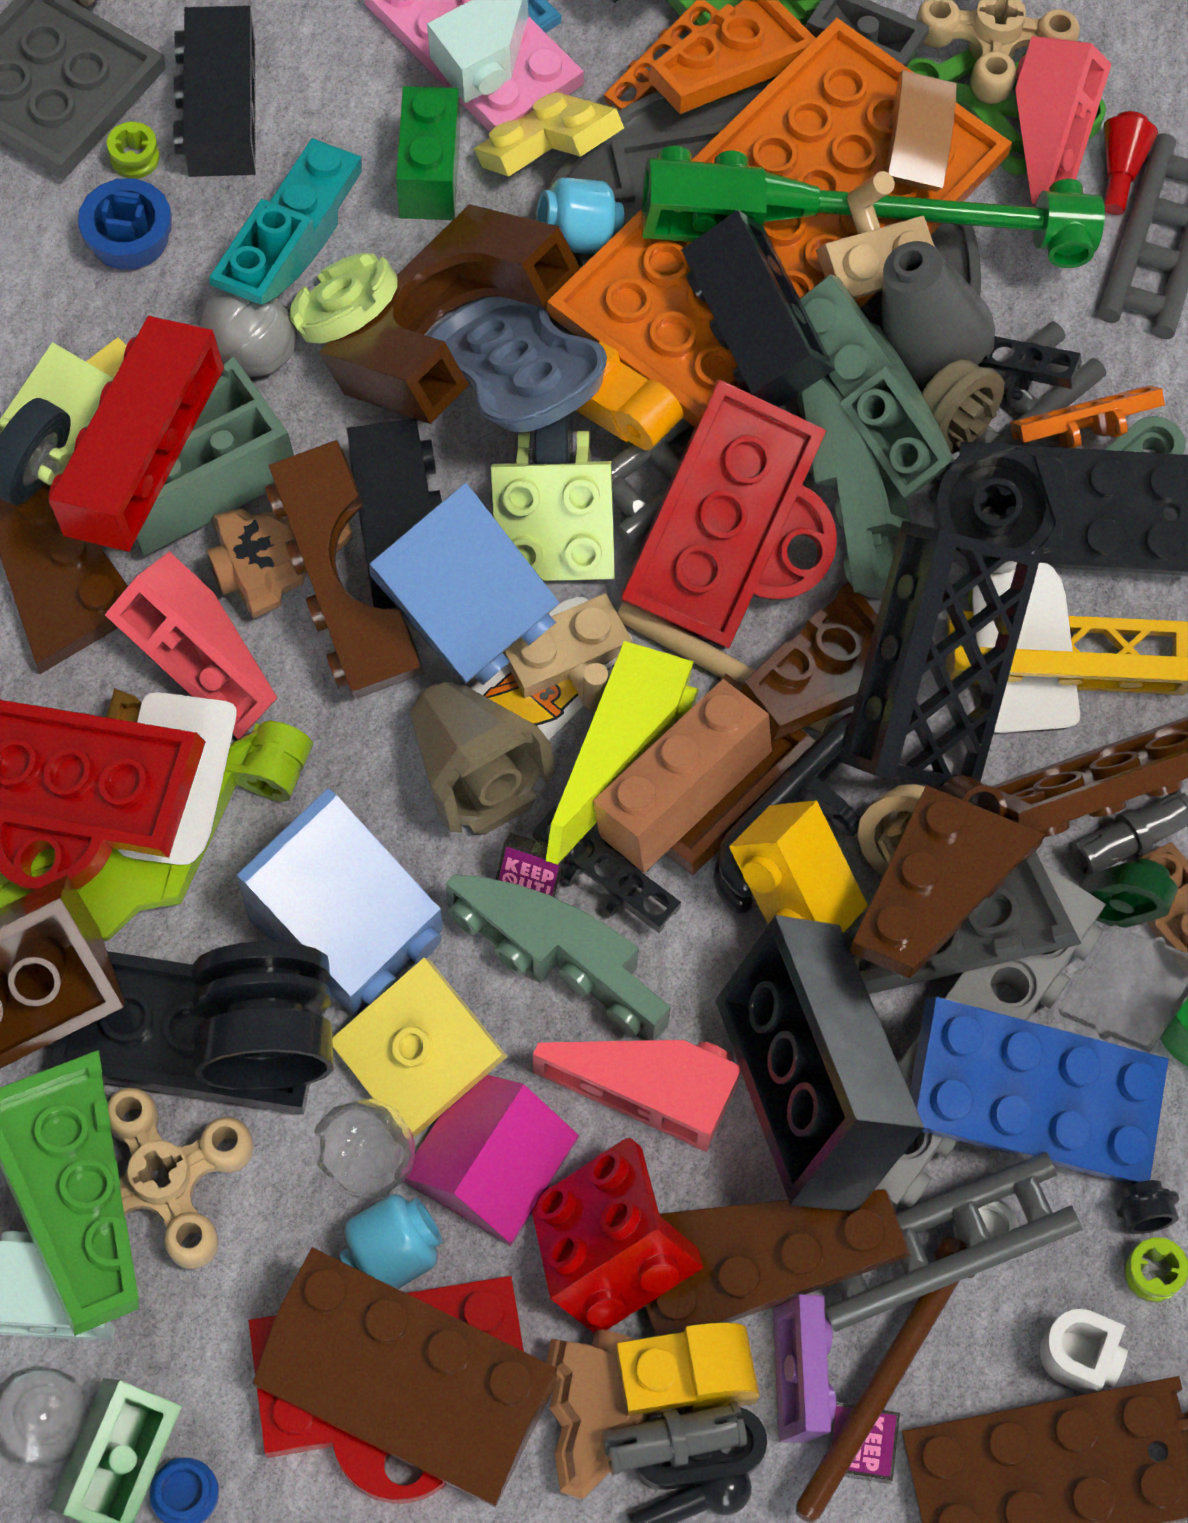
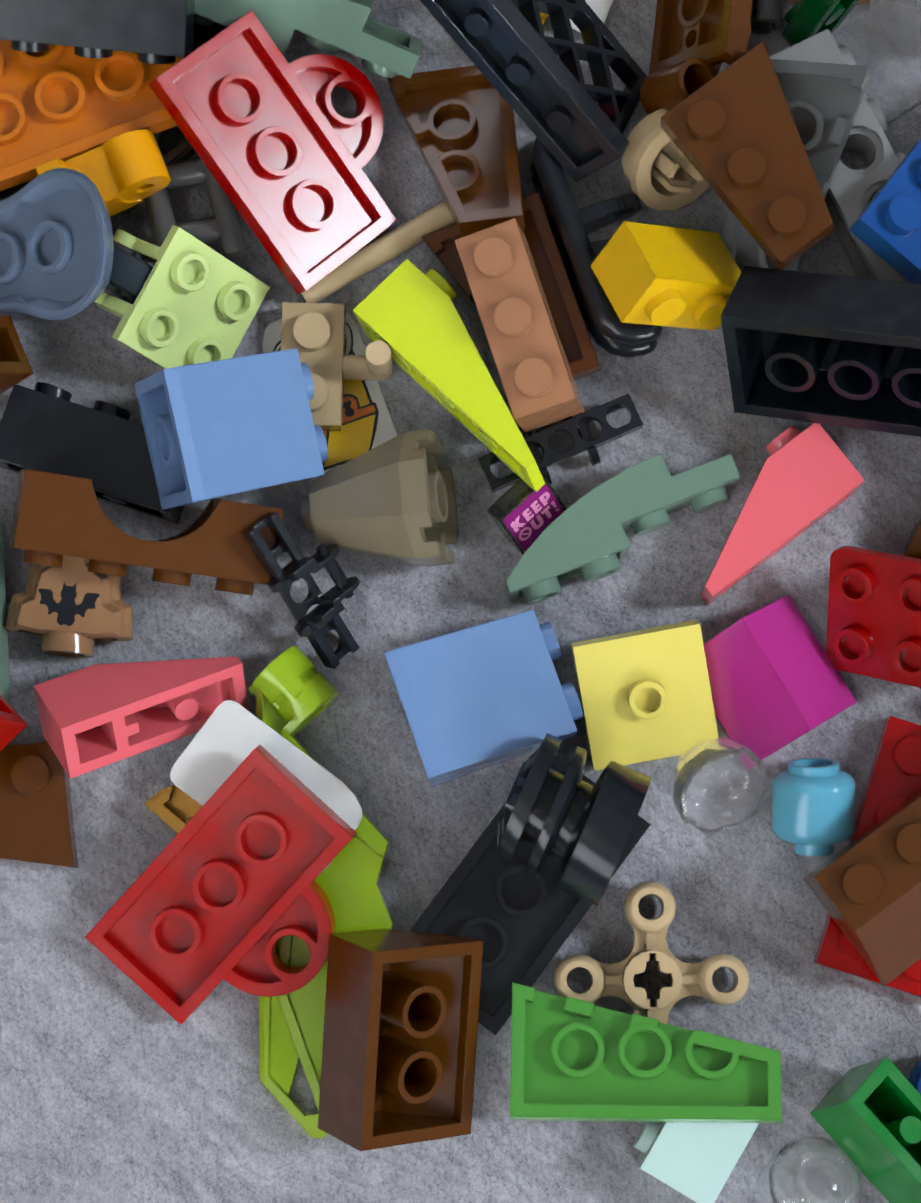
camera: 55 degrees left, 15 degrees up
(377, 707) = (301, 566): none -> black piece

